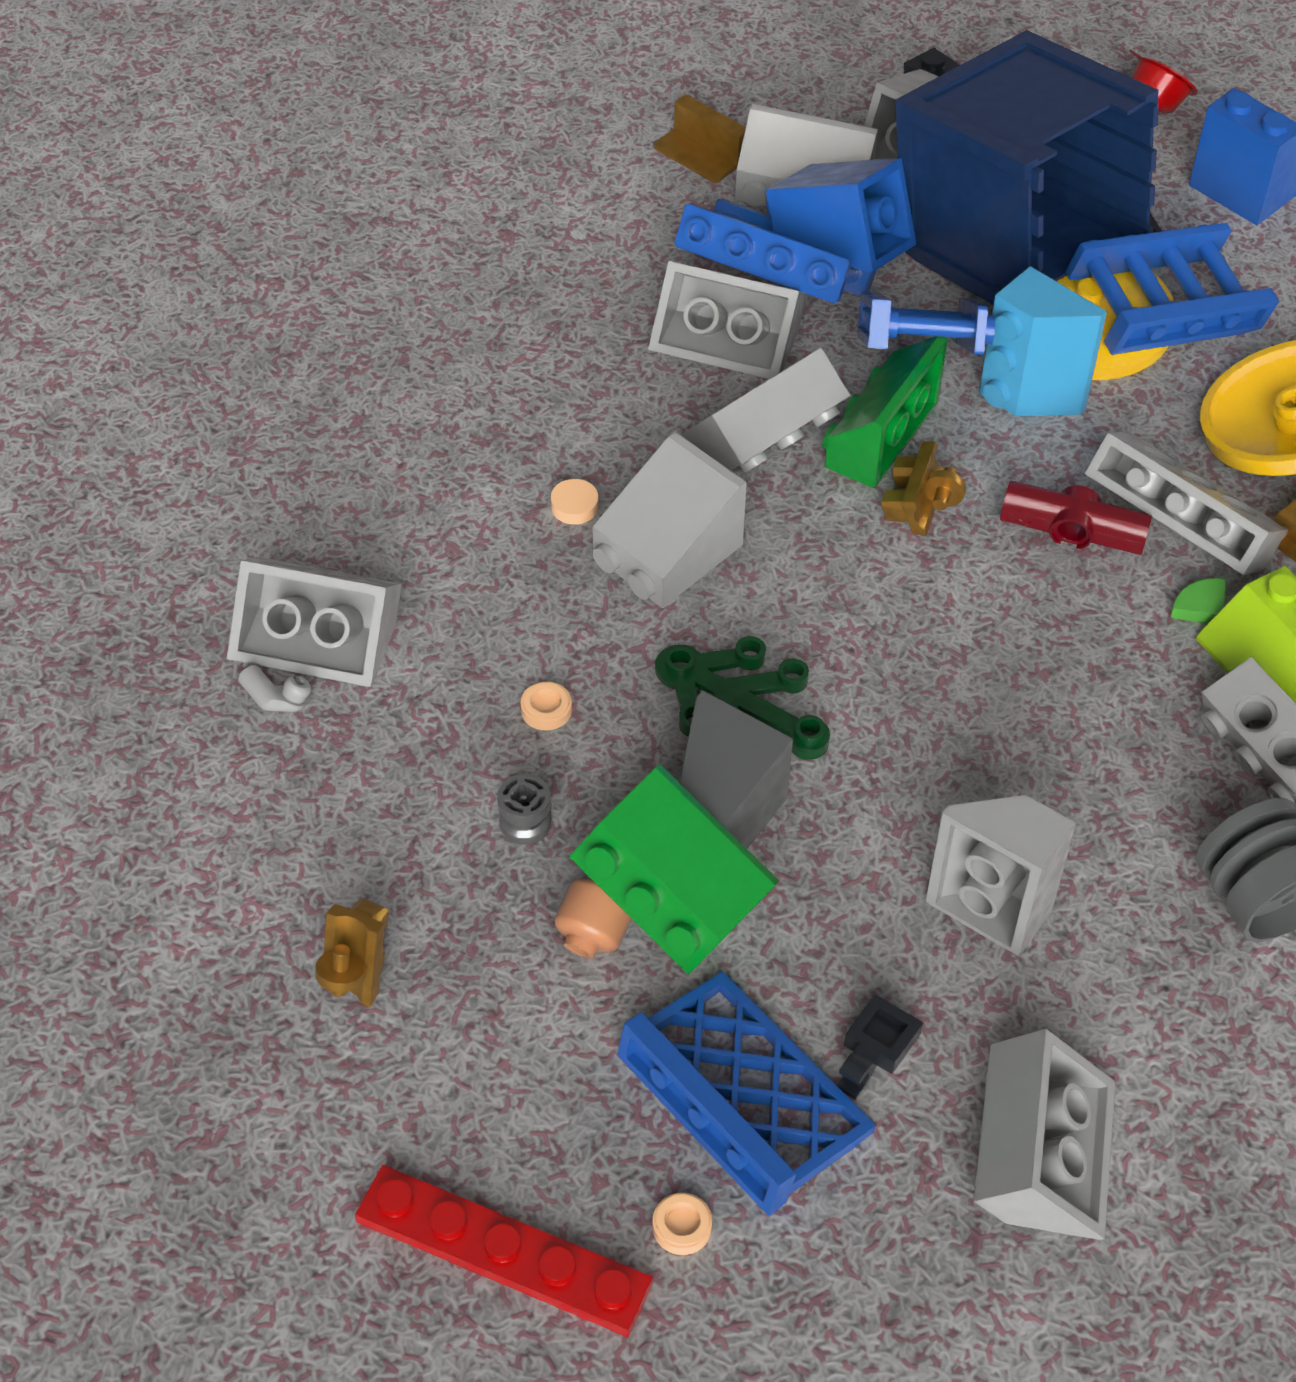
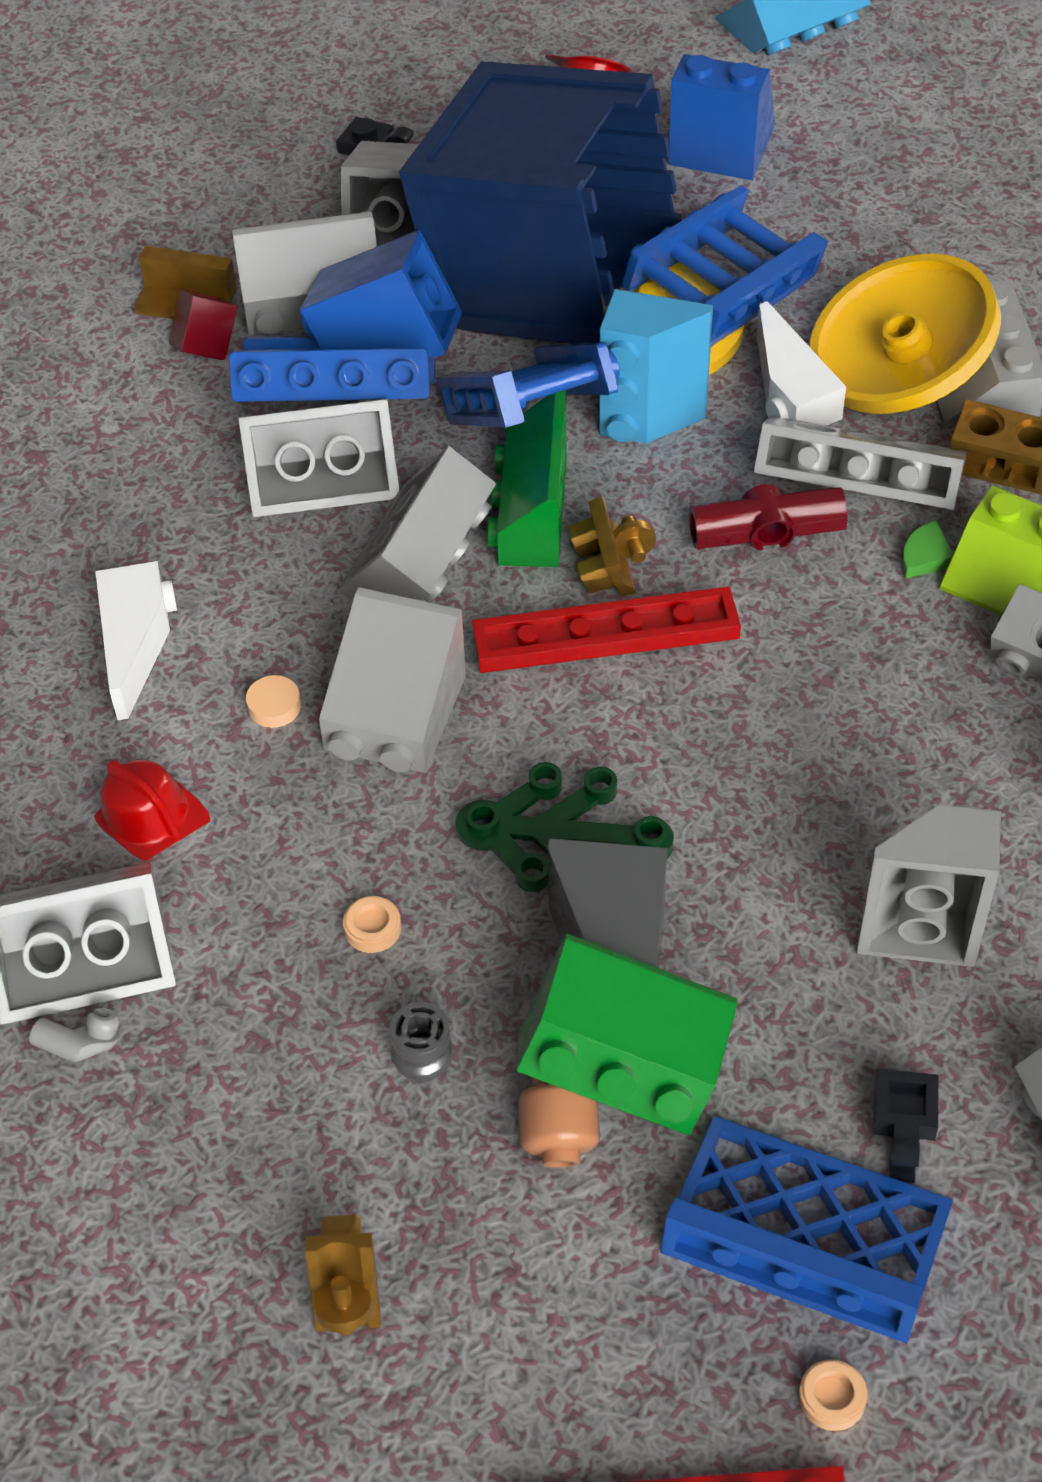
camera: 25 degrees left, 0 degrees up
(428, 542) = (147, 808): none -> red piece
(496, 399) = (134, 627): none -> white slope
(698, 176) = (203, 324): none -> dark red panel
(878, 554) = (605, 629): none -> red plate
(1176, 409) = (794, 376): none -> white slope

